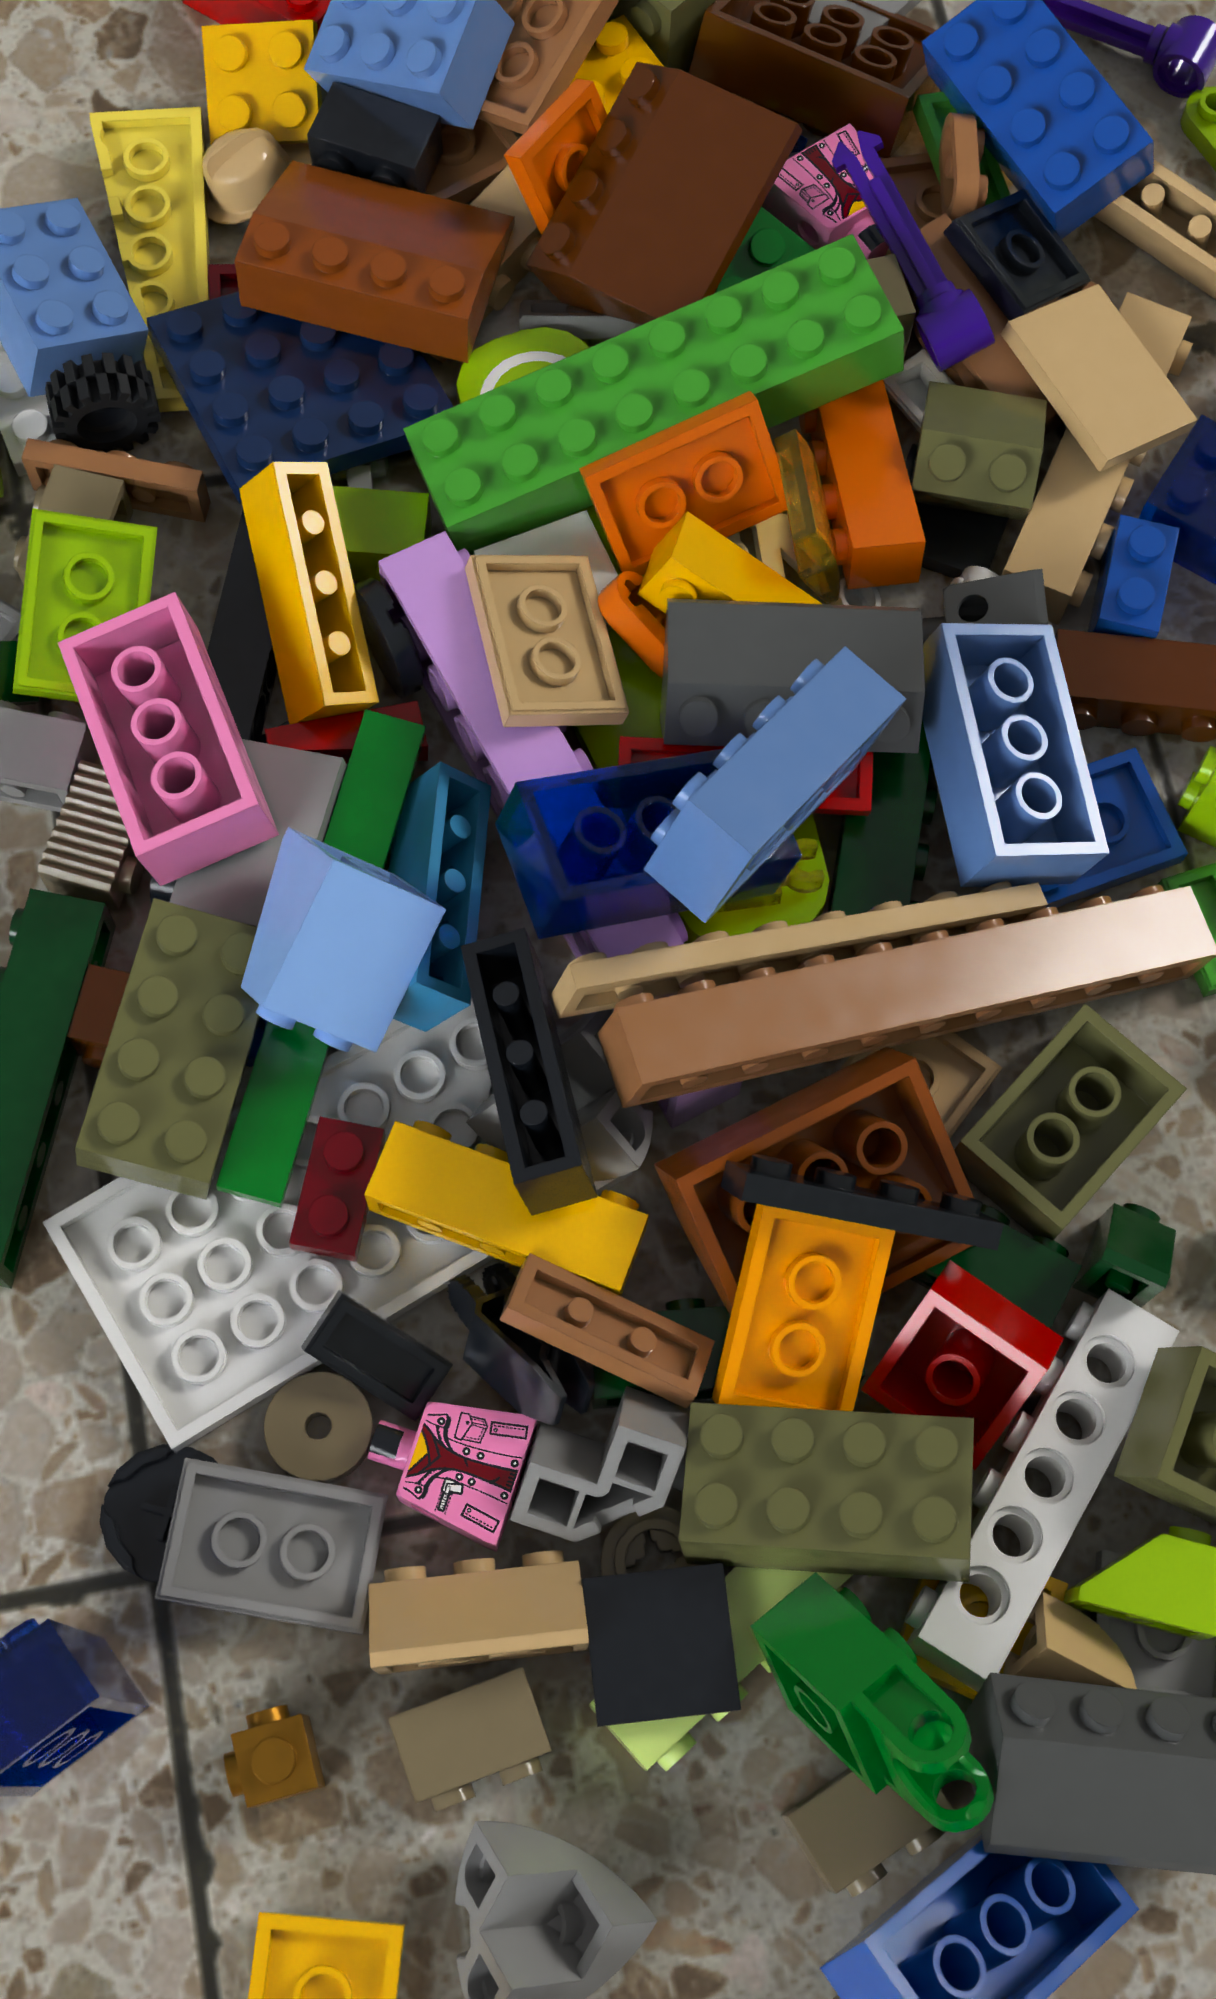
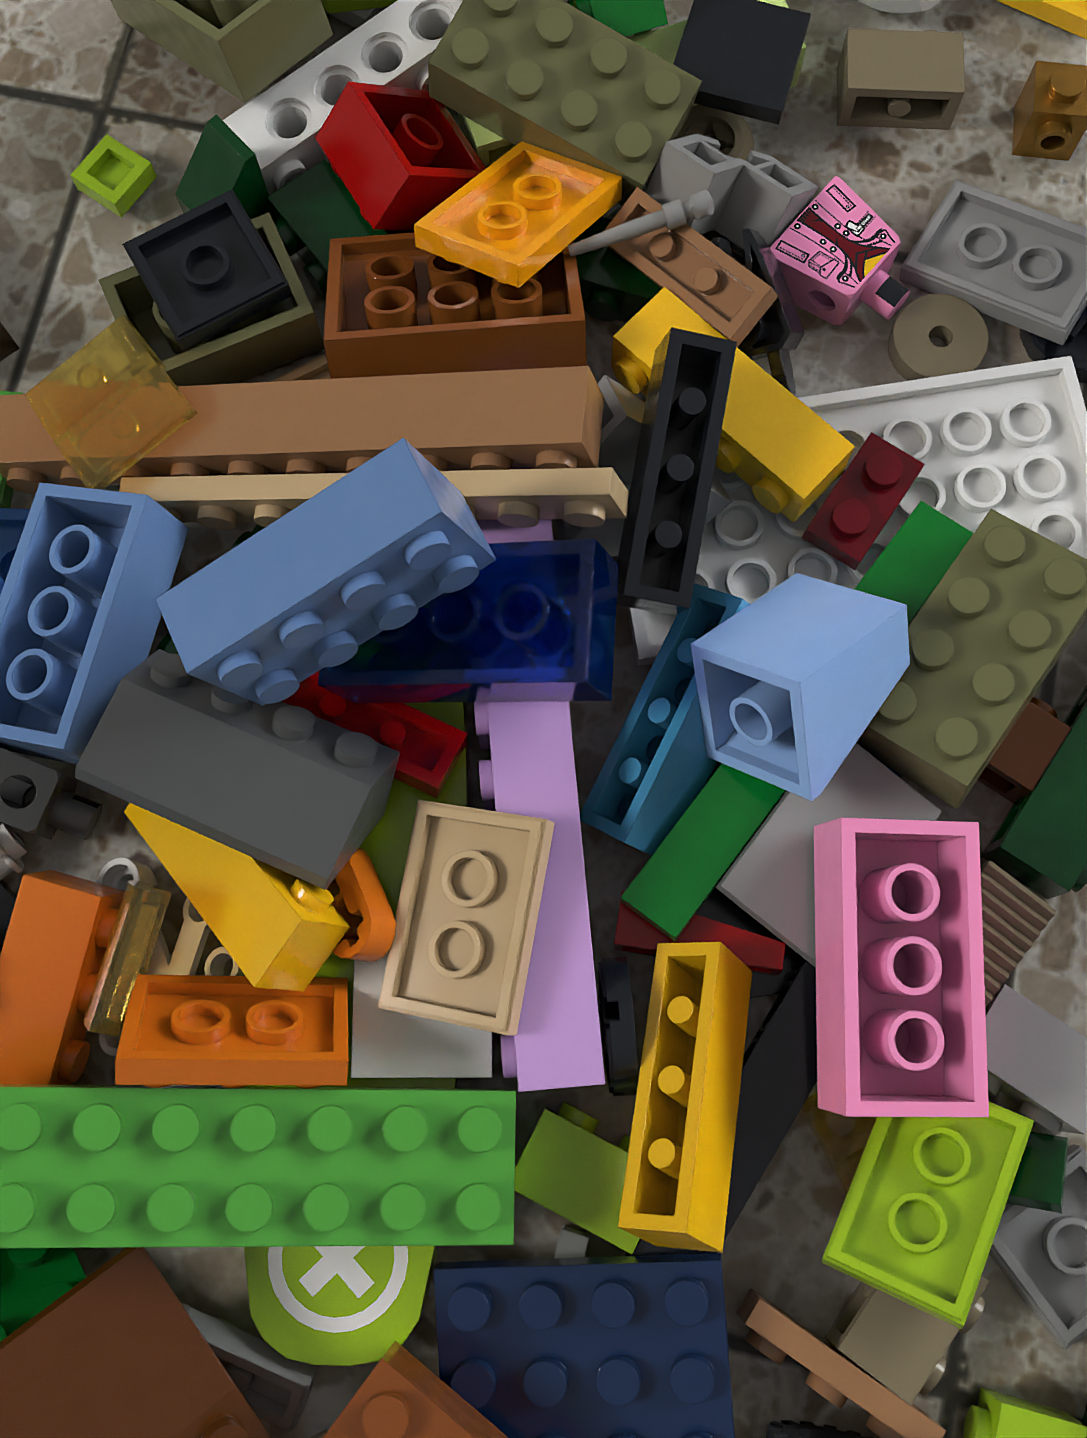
camera: 150 degrees left, 5 degrees up
(376, 1355) = (876, 362): black tile -> none
(476, 1614) = (873, 127): tan slope -> none
(645, 1356) = (671, 216): none -> light grey piece
(835, 1196) = (437, 252): black plate -> none
(1084, 1134) = (207, 270): none -> black tile
(1091, 948) = (109, 404): none -> clear yellow slope

